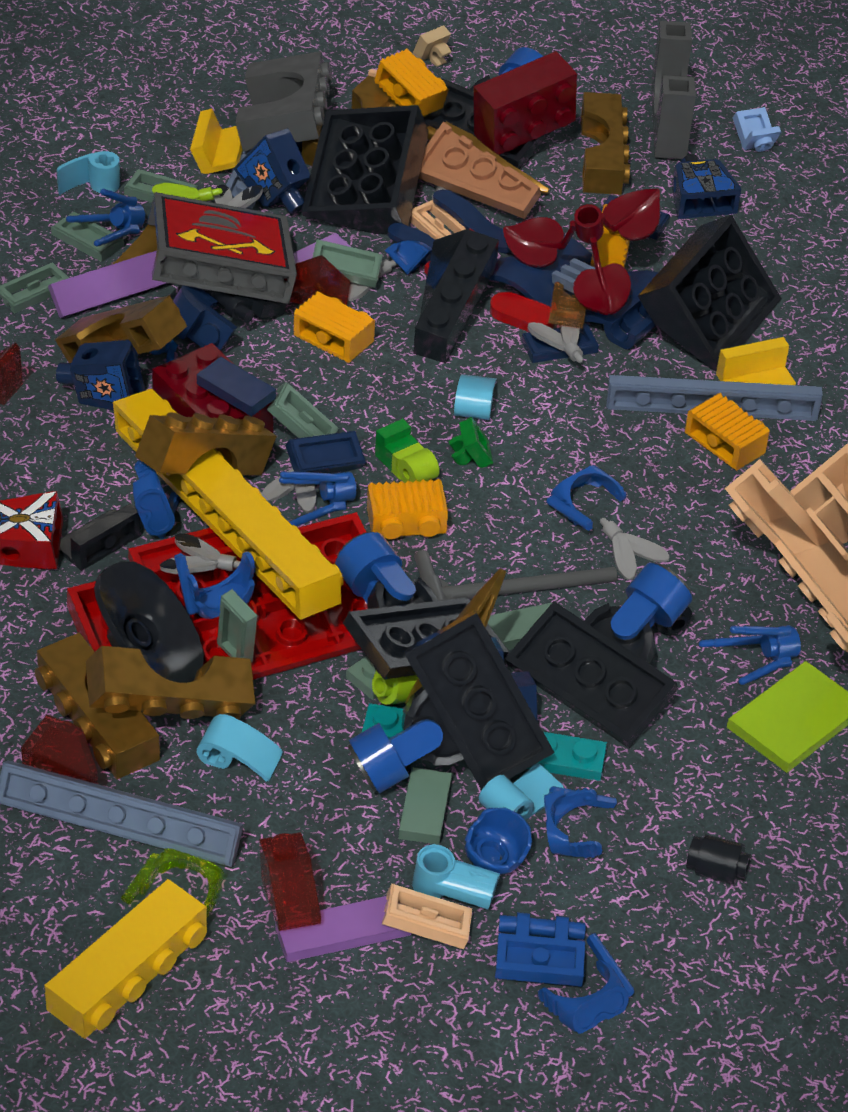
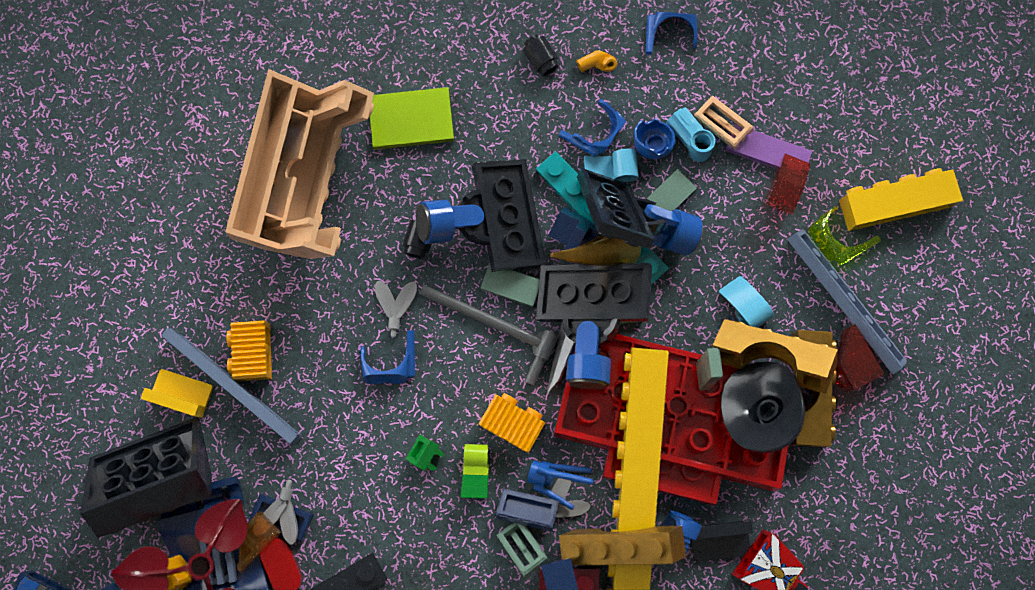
camera: 140 degrees left, 35 degrees up
(202, 557) = (679, 453): light grey piece -> none
(207, 600) = (693, 420): blue helmet -> none
(474, 397) = (381, 504): medium azure panel -> none
(540, 958) = (683, 62): blue plate -> none
(643, 904) = (597, 60): none -> light orange arm
(776, 642) = (379, 167): blue plant -> none

